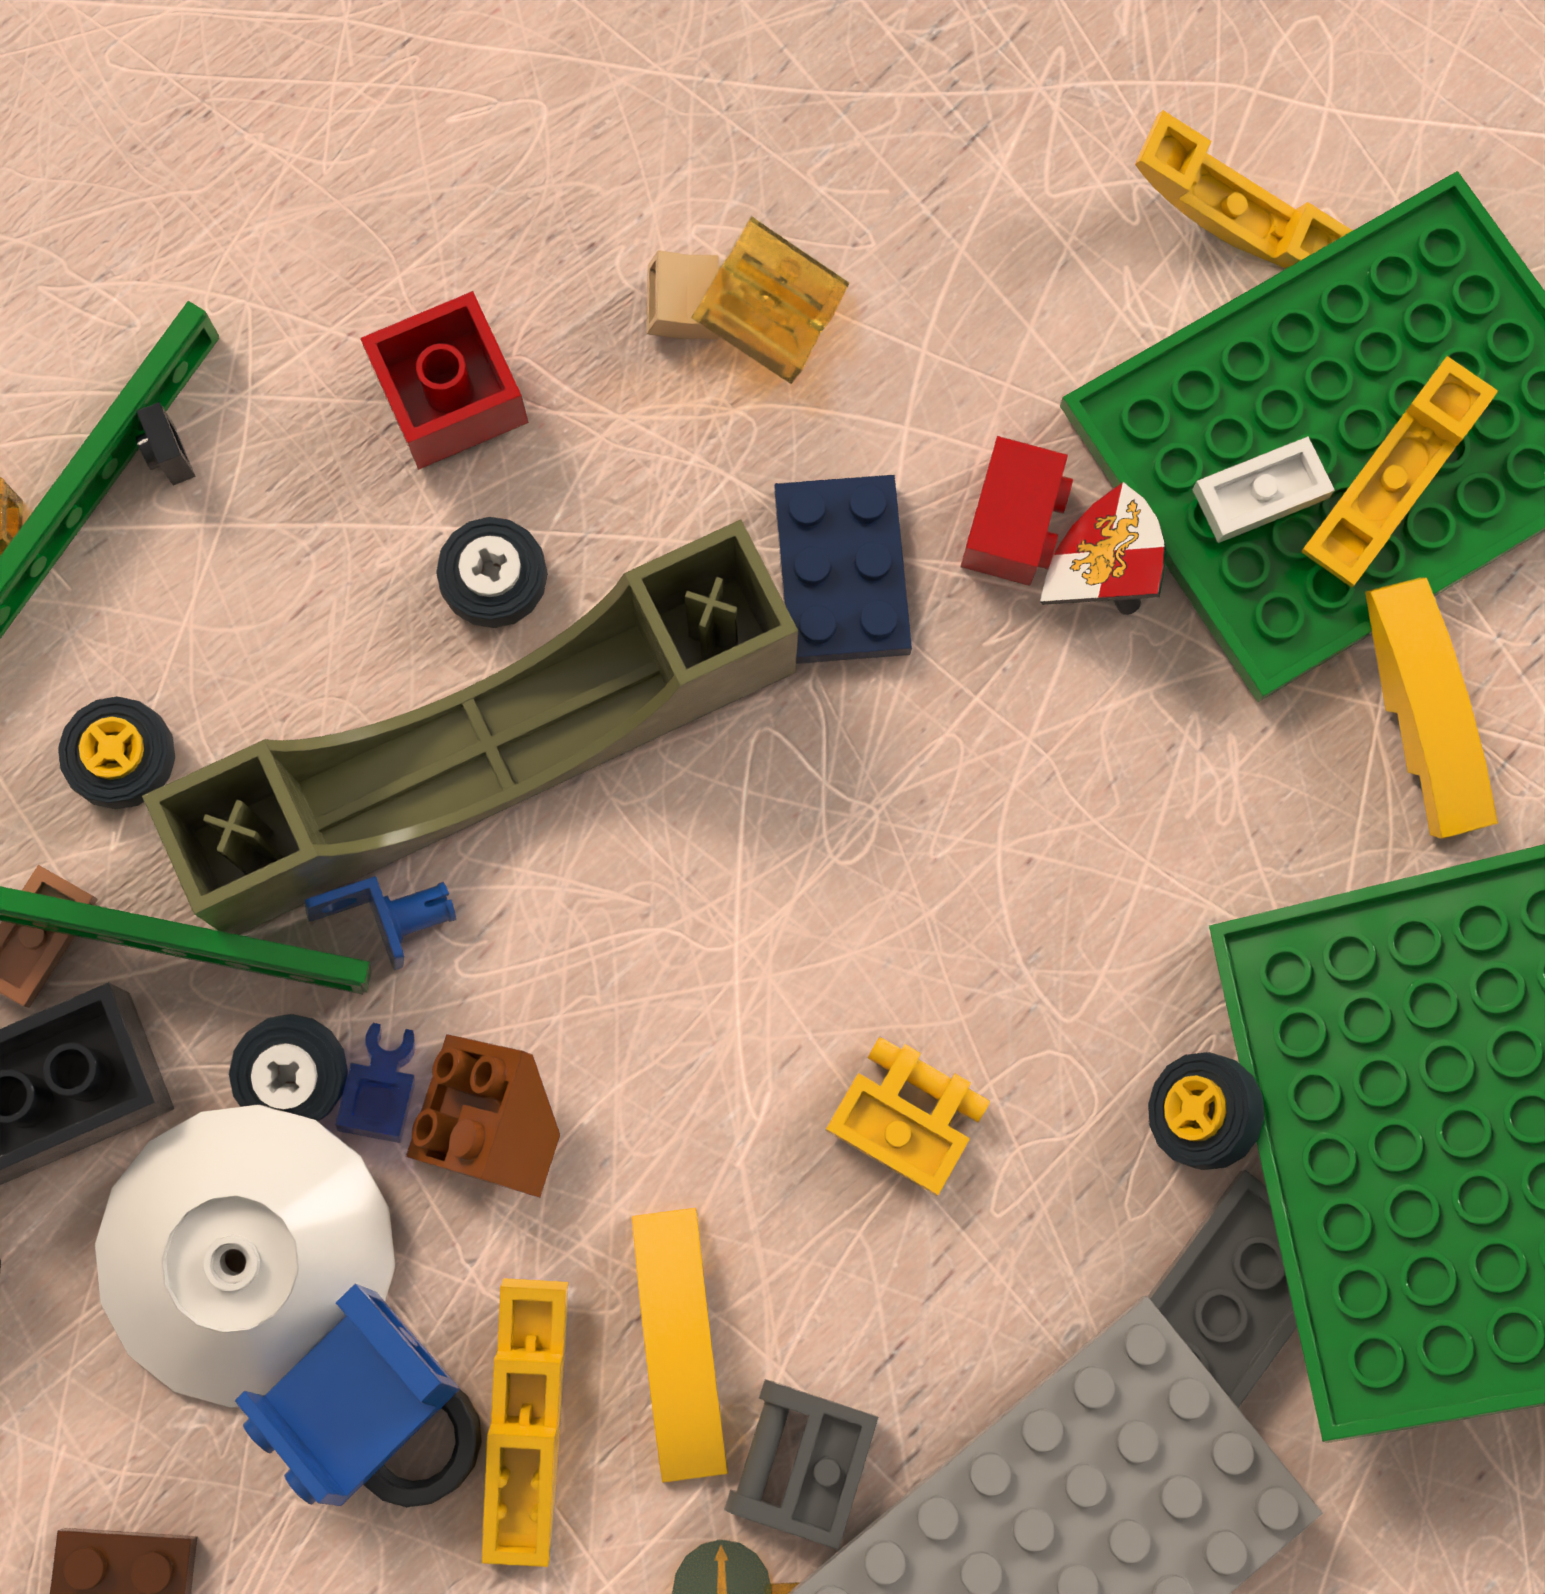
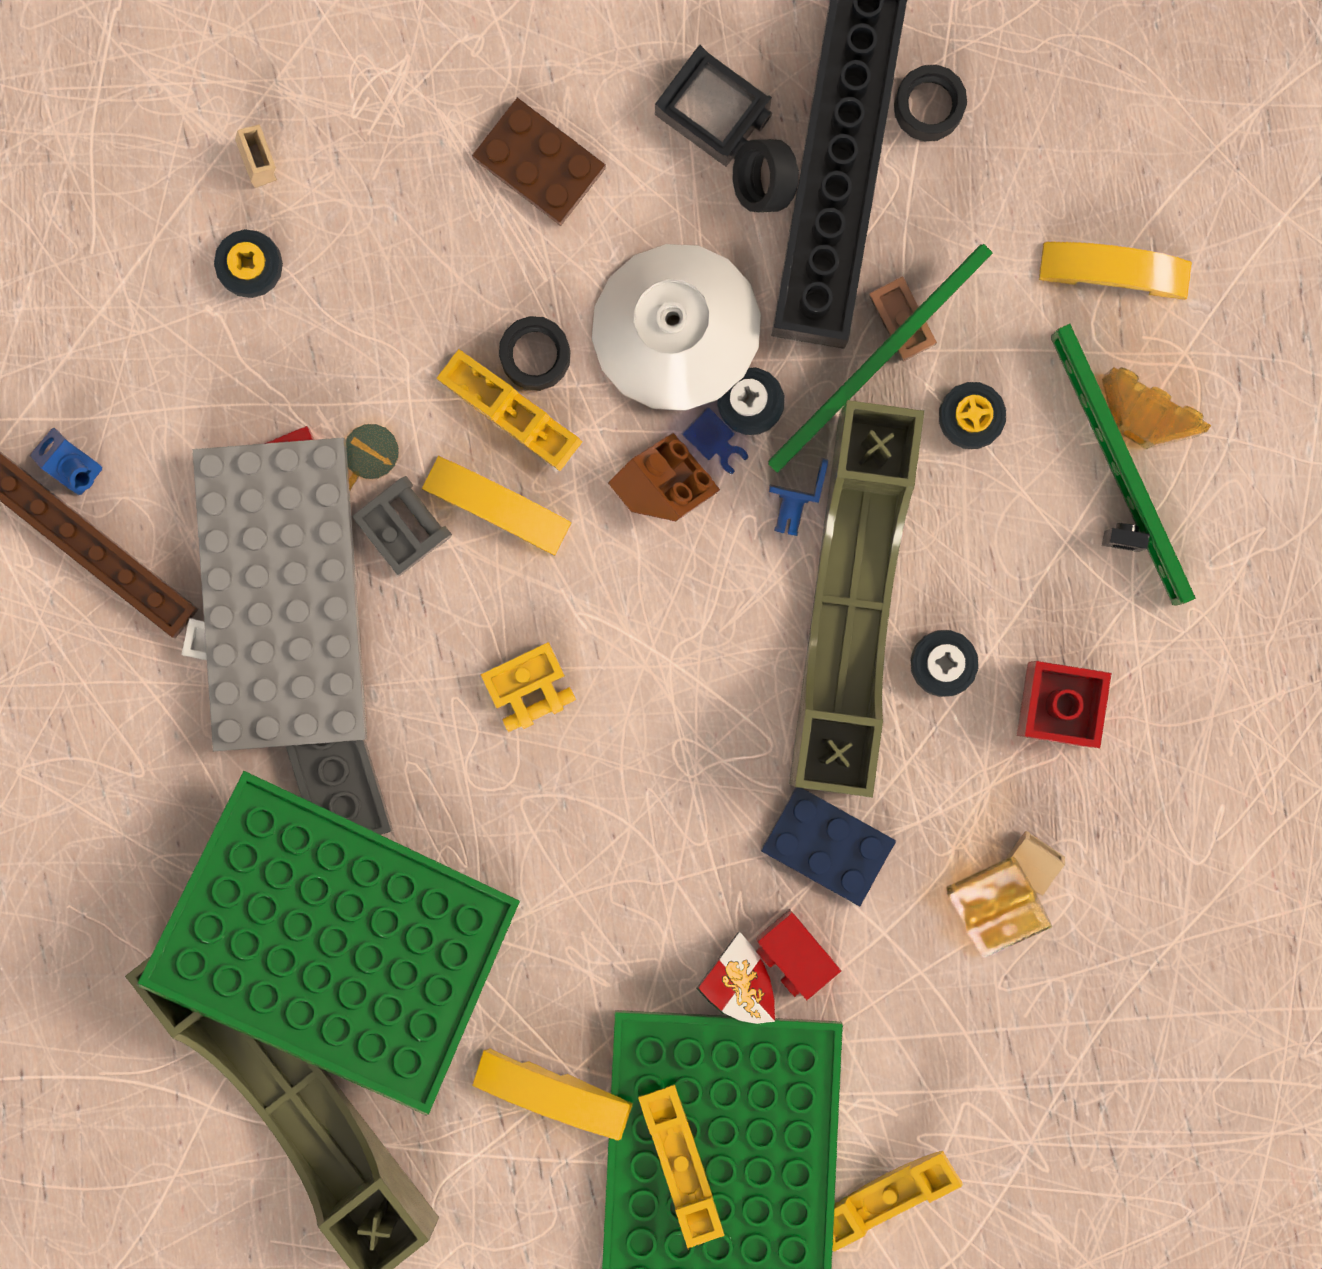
camera: 125 degrees right, 10 degrees up
(348, 1401) = (571, 333): blue panel -> none
(1181, 1109) = (441, 821): black wheel -> none
(1263, 489) = (720, 1089): white plate -> none

